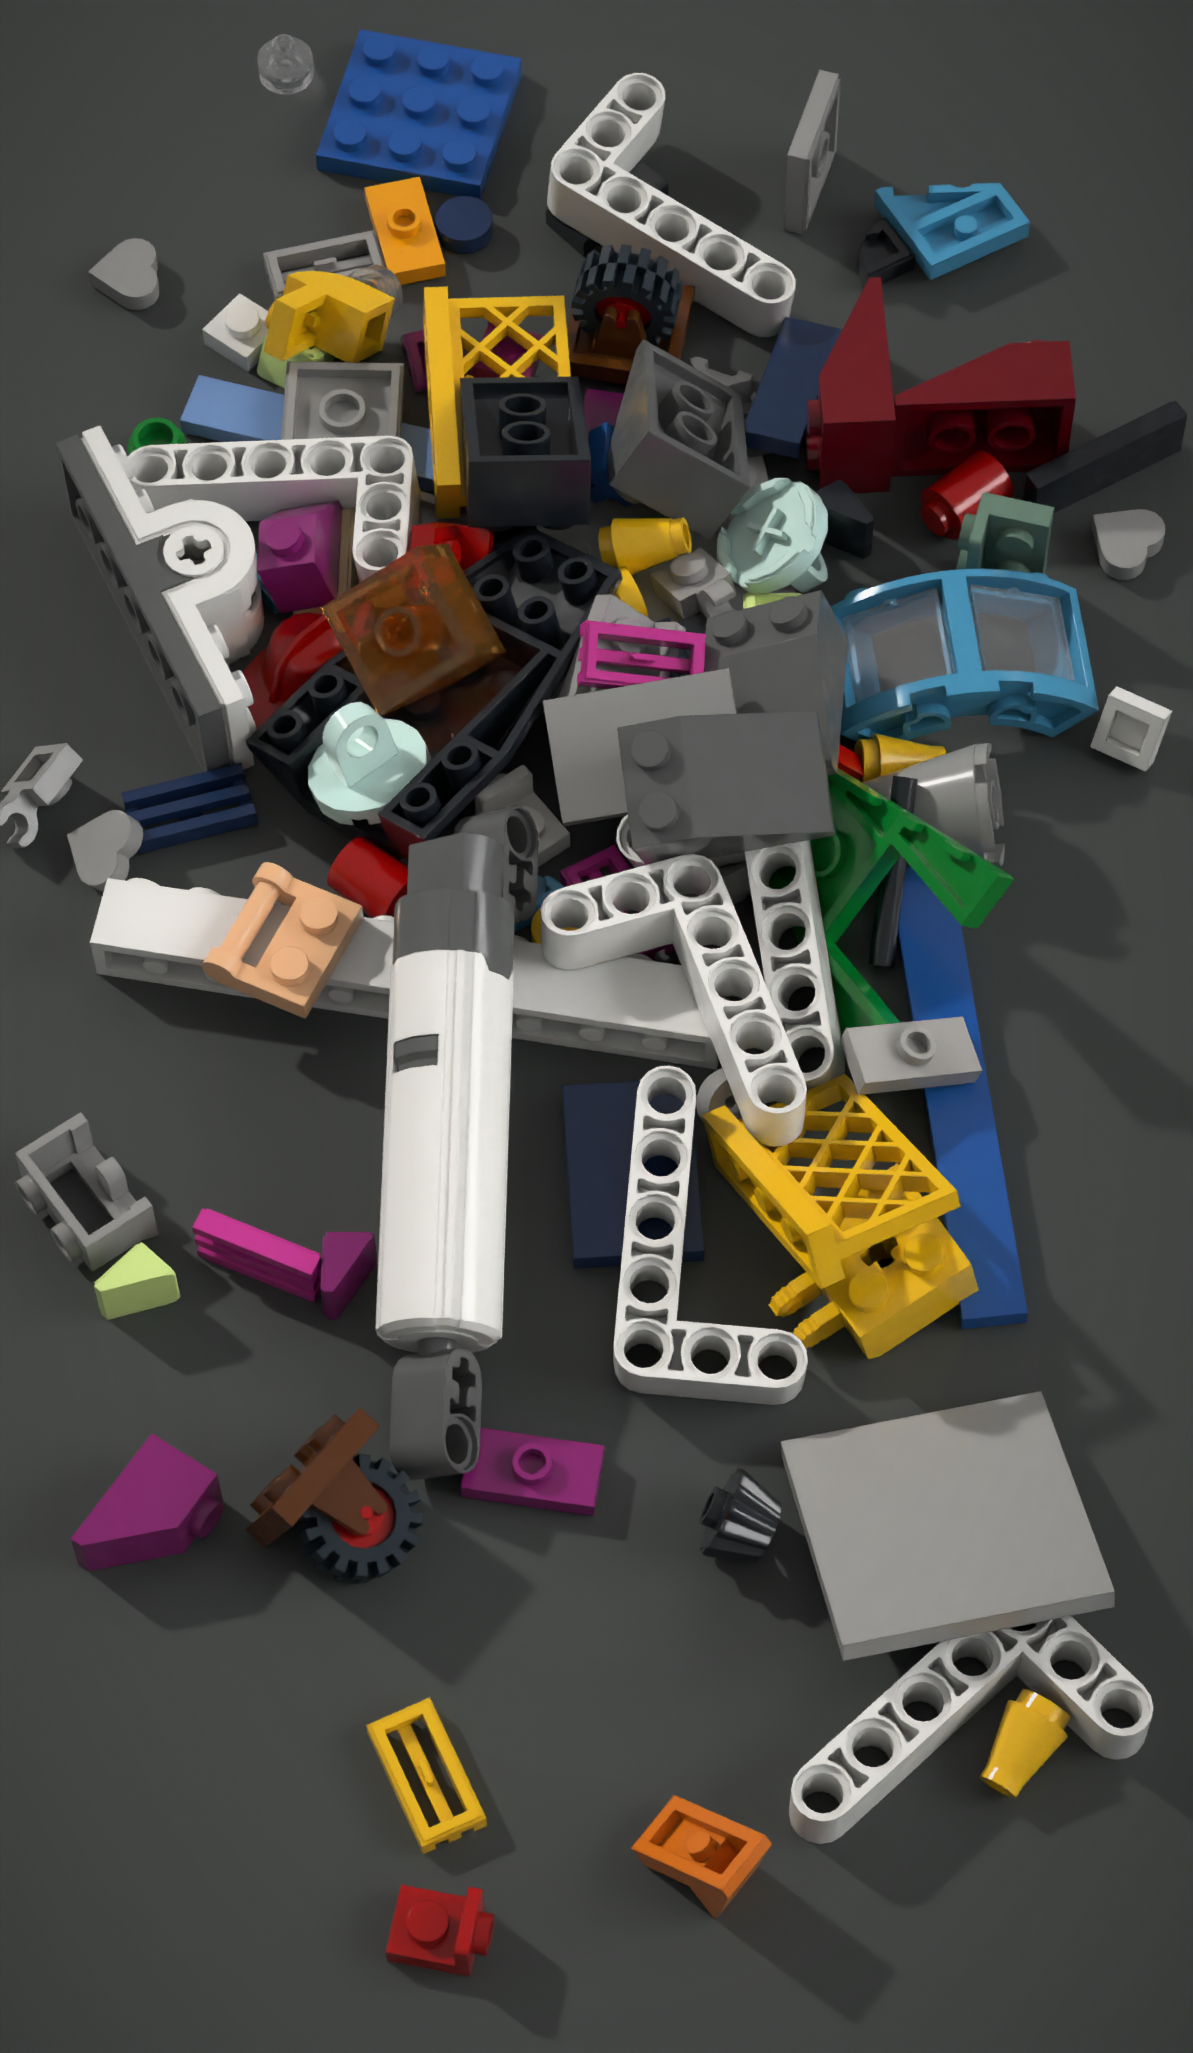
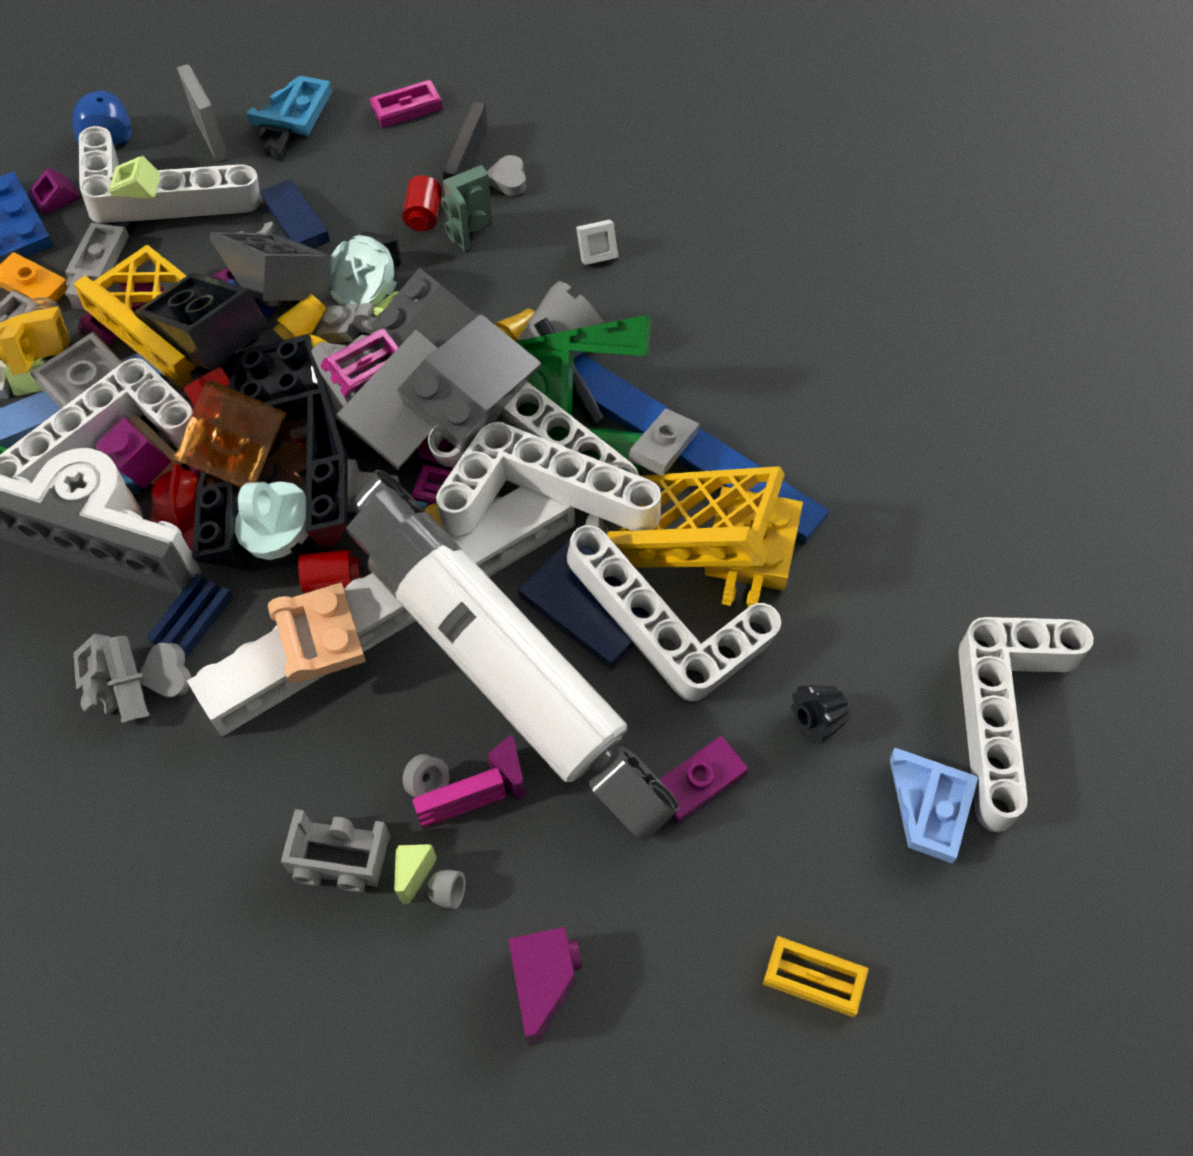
camera: 45 degrees left, 0 degrees up
(53, 821) = (124, 678): none -> light grey axle
(154, 1336) = (447, 888): none -> light grey hinge
(249, 1198) = (425, 774): none -> light grey tile
(348, 1511) = (634, 881): plate -> none
(439, 1930) = (911, 1046): red bracket -> none
(464, 224) = (56, 257): dark blue tile -> none
(505, 258) = (94, 256): none -> light grey hinge
(544, 121) = (53, 191): none -> magenta slope
(618, 305) = (181, 232): plate -> none
(628, 195) = (135, 179): none -> yellowish green slope
(691, 73) = (105, 111): none -> blue helmet
(702, 1851) = (987, 880): orange slope -> none
(751, 1731) = (932, 803): none -> light blue wing
(855, 411) = (338, 190): dark red slope -> none
(945, 1525) = (912, 630): light grey tile -> none
(962, 649) = (497, 257): window -> none
(1002, 403) = (405, 147): dark red slope -> none
(1024, 1741) = (1044, 694): yellow cone -> none
(1104, 336) = (406, 103): none -> dark pink tile

